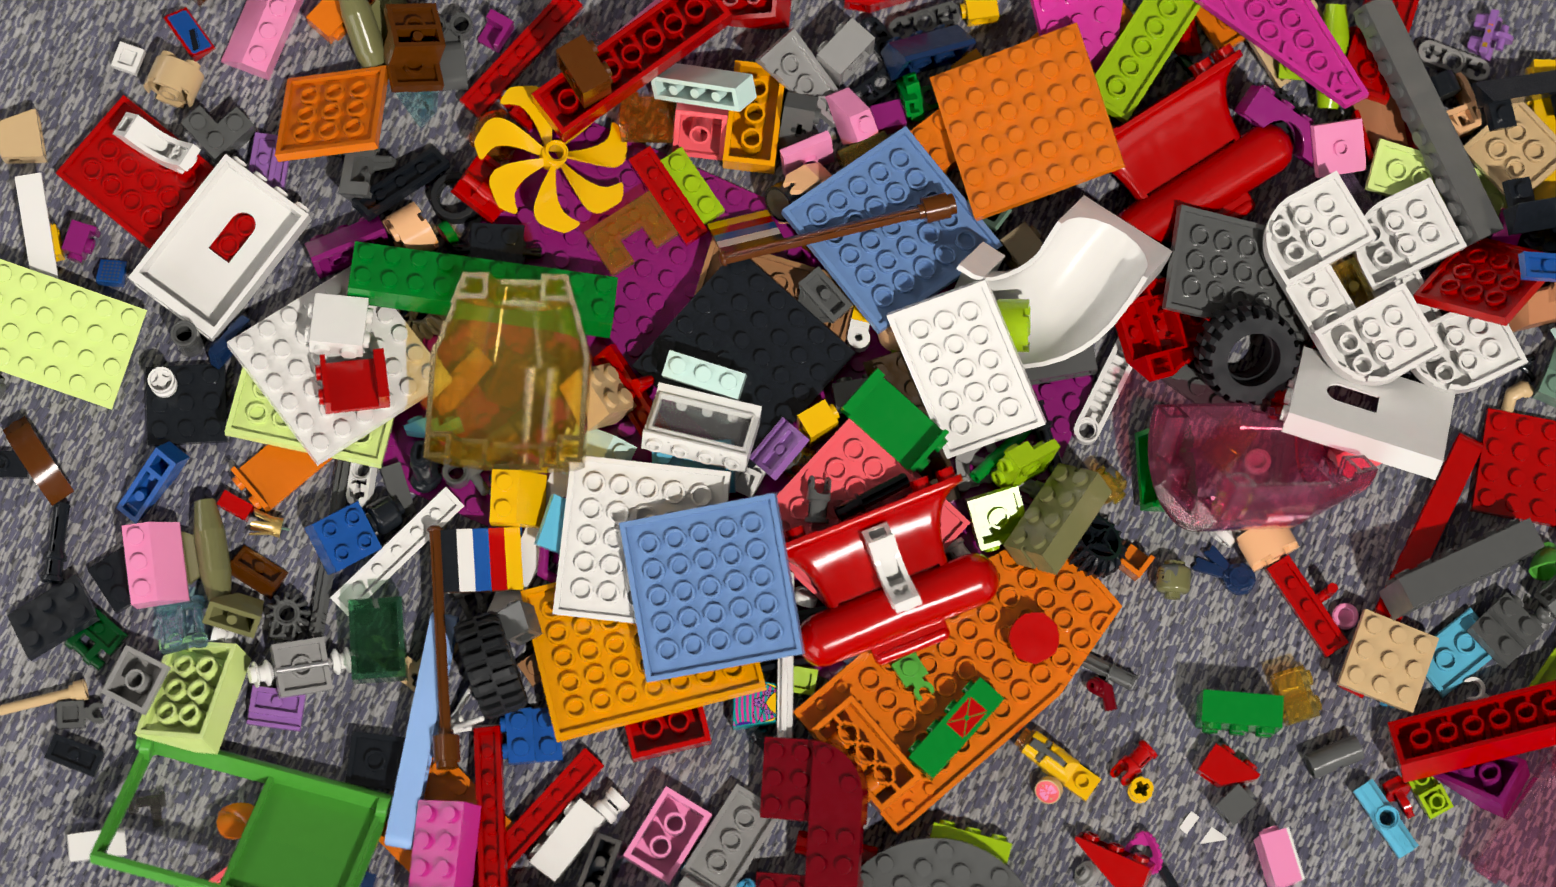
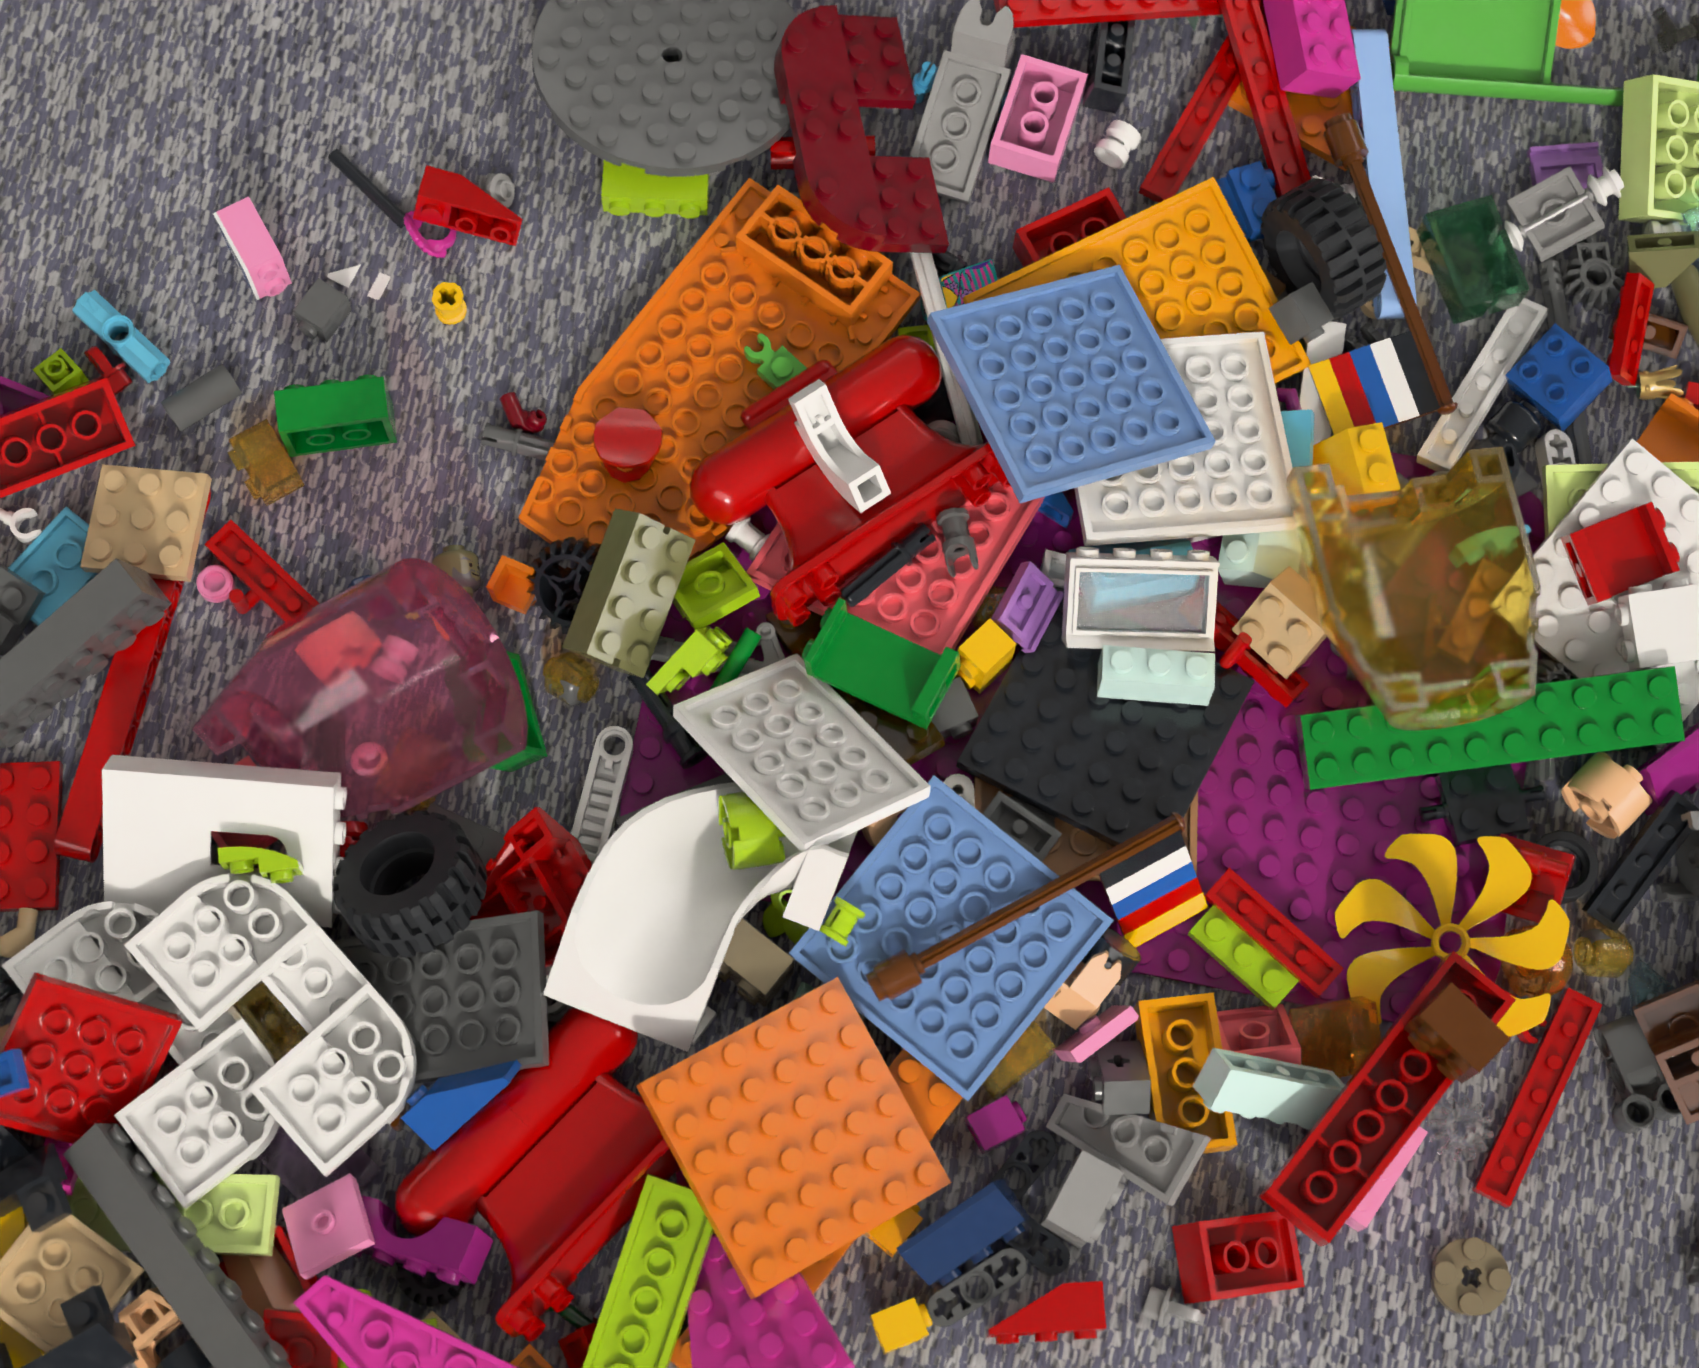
camera: 165 degrees right, 5 degrees down
(277, 563) = (1630, 328): none -> red plate
(374, 760) = (1429, 135): black plate -> none
(446, 133) = (1603, 953): none -> clear yellow head
(447, 233) = (1555, 814): green tile -> none
(496, 31) = (1582, 1121): magenta panel -> none
(566, 840) = (1162, 90): white brick -> none
(639, 214) = (1339, 857): clear yellow plate -> none
(851, 116) = (1048, 1108): bright pink slope -> none
(913, 97) = (965, 1160): green piece -> none
(955, 728) = (705, 307): green brick -> none
(963, 249) = (841, 921): none -> lime bush
(1048, 789) = (568, 279): tile -> none
(1057, 763) = (564, 311): yellow plate -> none
(1133, 762) = (462, 337): red piece -> none
(1225, 769) = (341, 350): red slope -> none
(1241, 200) = (453, 1100): none -> blue slope
(1336, 378) = (272, 864): none -> lime slope

